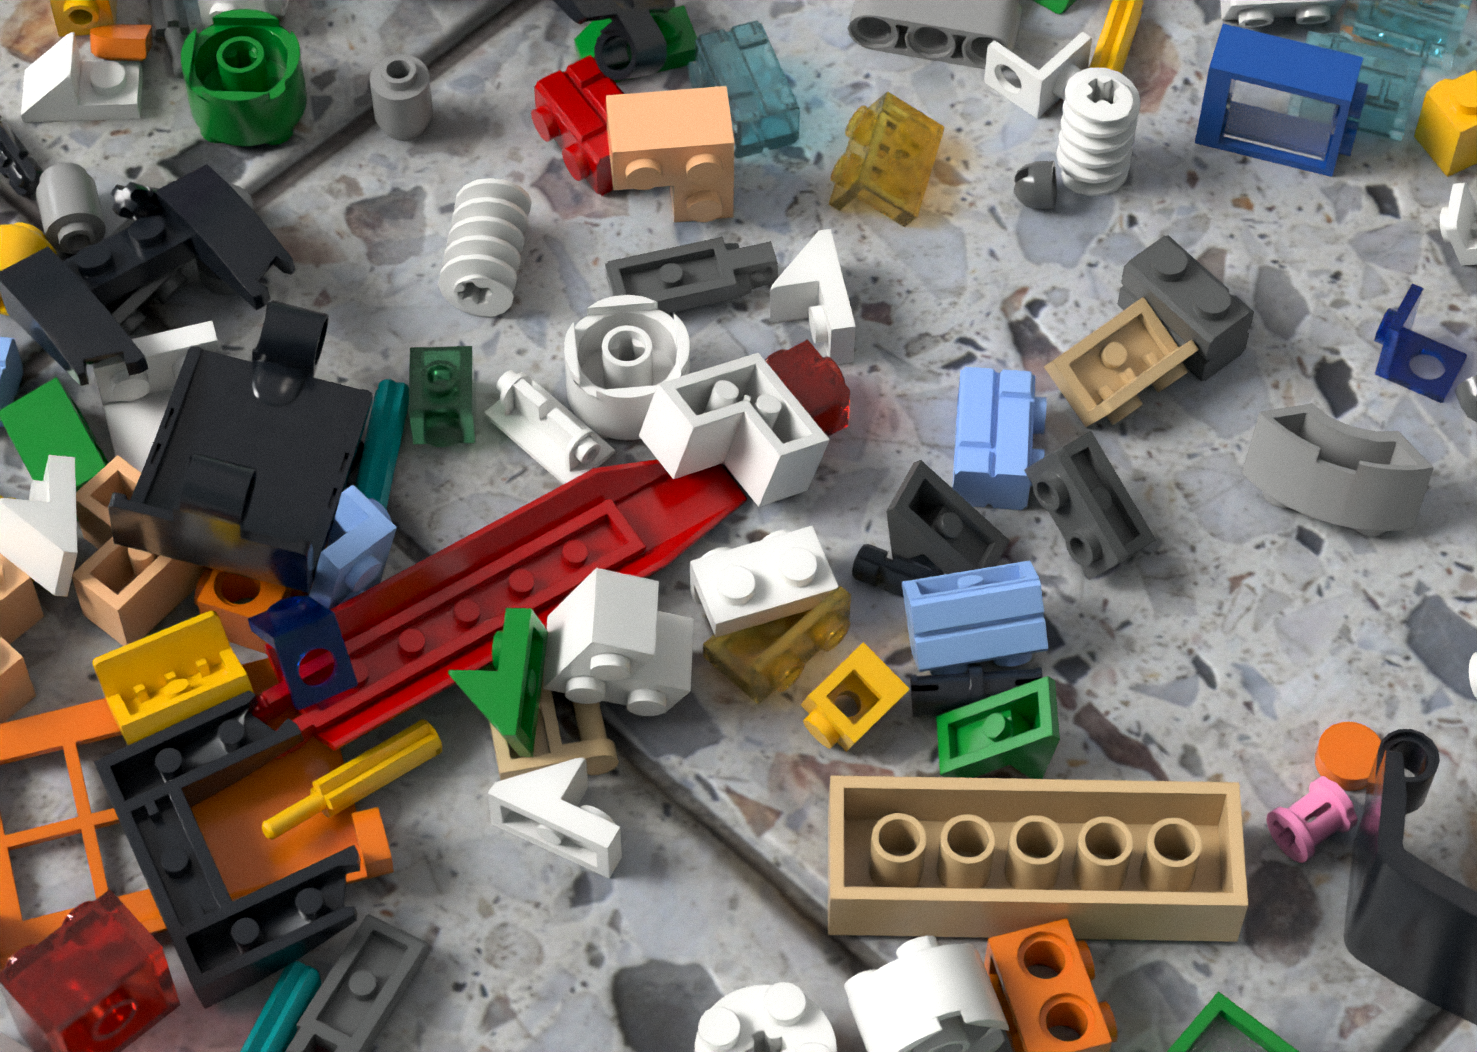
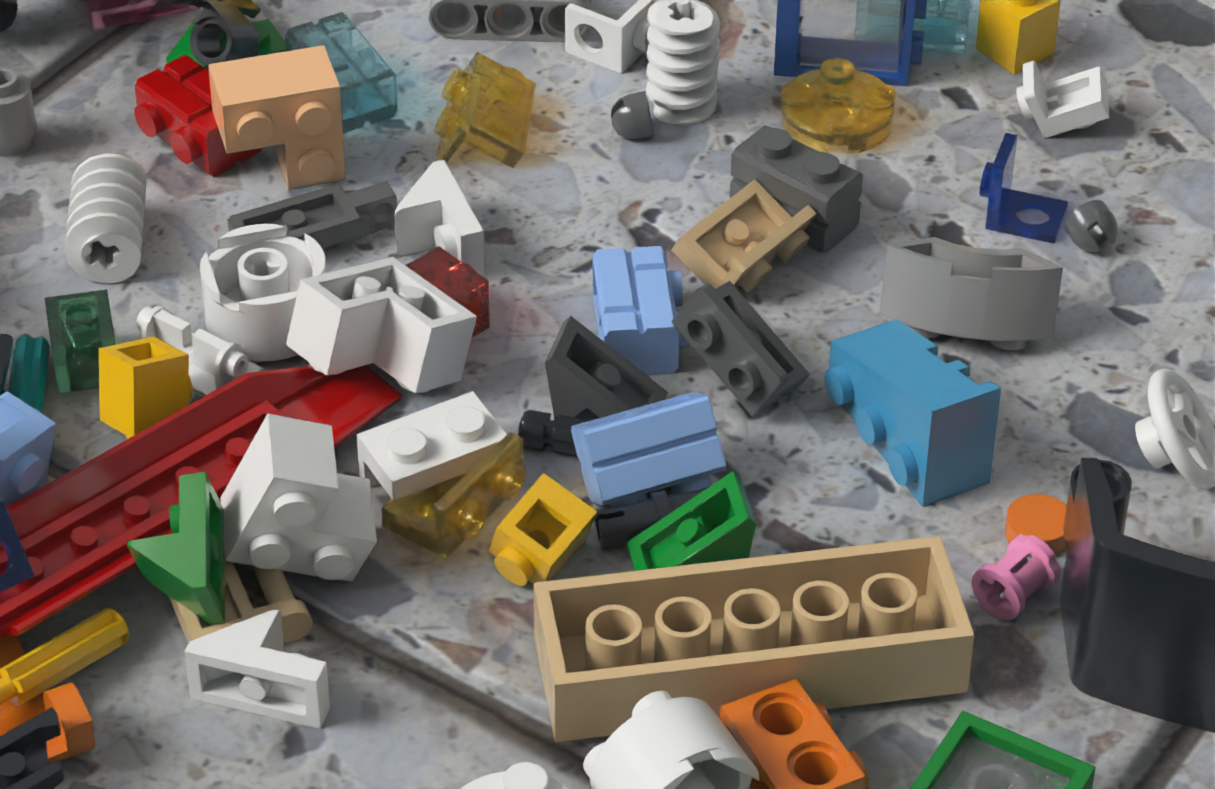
camera: 10 degrees left, 15 degrees down
(492, 467) = (142, 384): none -> yellow brick
(1248, 606) = (916, 409): none -> dark azure wedge
(1258, 174) = (838, 108): none -> clear yellow plate

